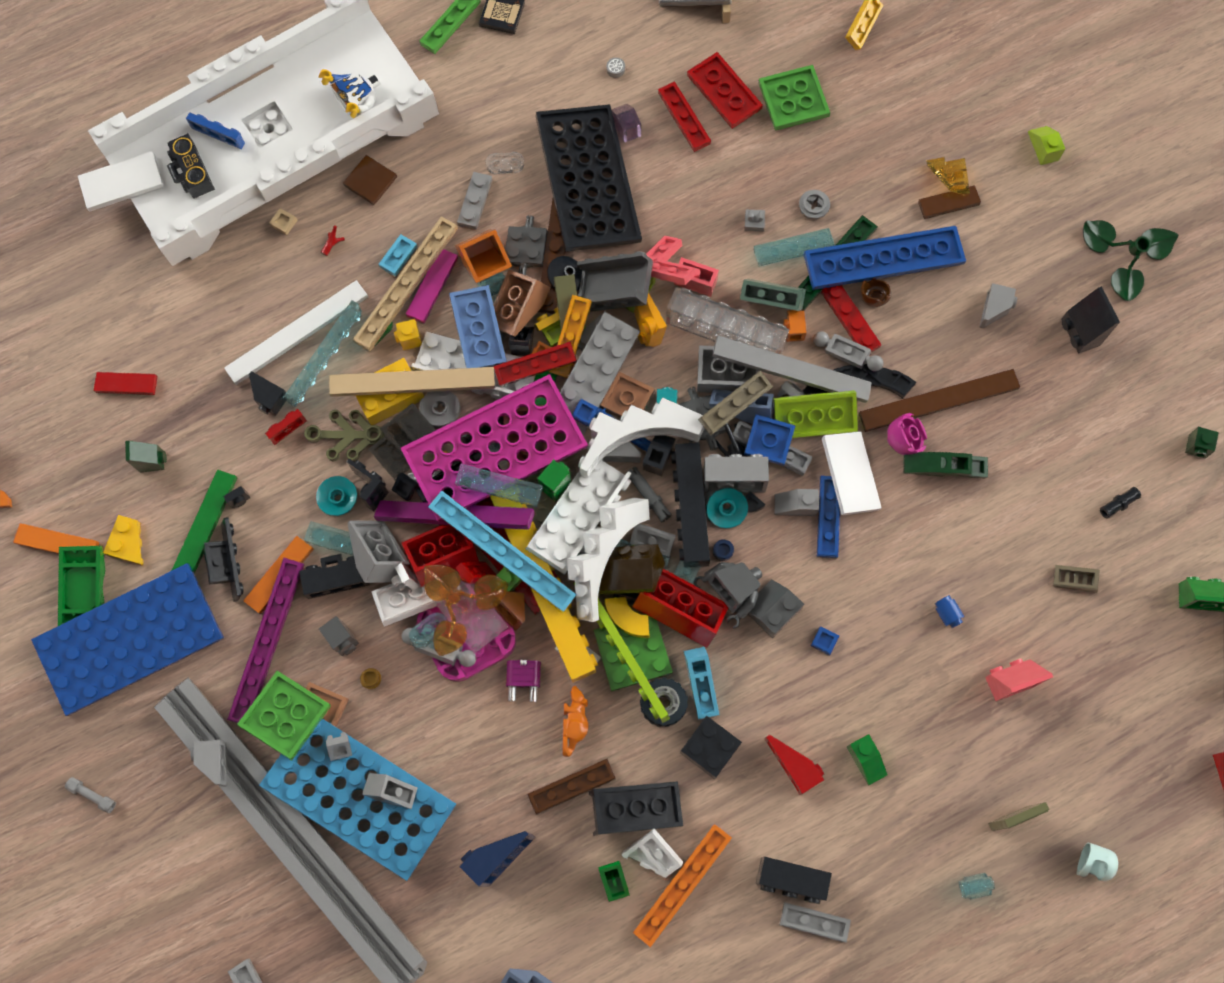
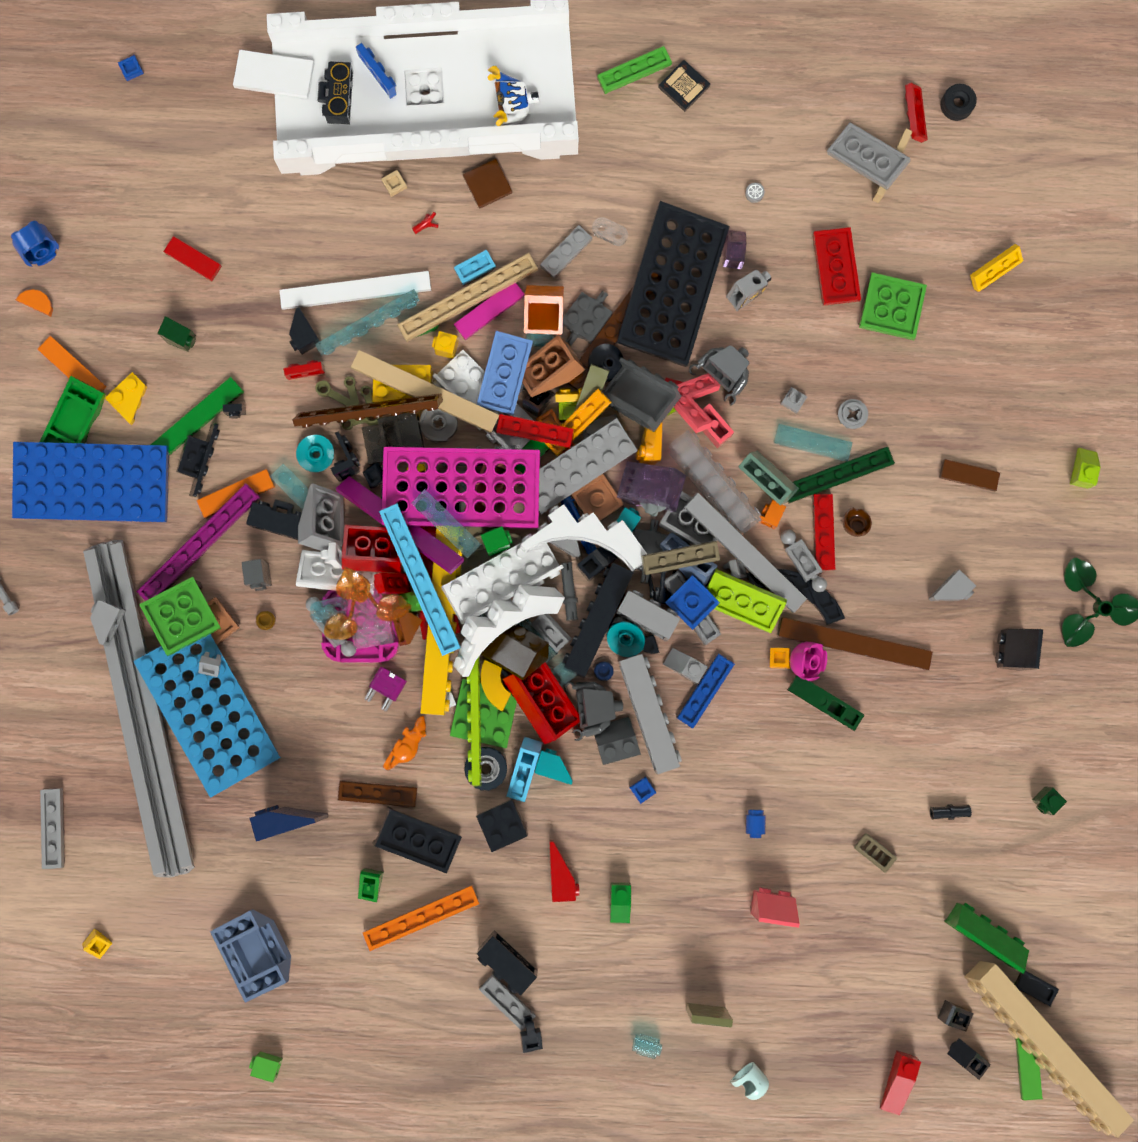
camera: 20 degrees right, 10 degrees up
(374, 423) = (361, 411): none -> reddish brown plate
(389, 790) = (232, 722): light grey slope -> none
(584, 412) = (552, 497): blue tile -> none
(654, 854) = (411, 882): white wing -> none
(660, 139) = (748, 289): none -> light grey torso
(671, 356) = (651, 487): none -> clear purple piece
(678, 221) = (727, 368): none -> dark grey torso
(684, 116) = (787, 272): red plate -> none
(728, 665) = (552, 766): none -> teal slope
(789, 562) = (649, 714): none -> light grey brick
(851, 473) = (744, 665): white tile -> none
(860, 943) = (531, 1038): none -> black plate
(879, 448) = (780, 657): none -> light orange plate
(884, 257) = (883, 495): blue plate -> none
(951, 174) = (986, 451): clear yellow slope -> none

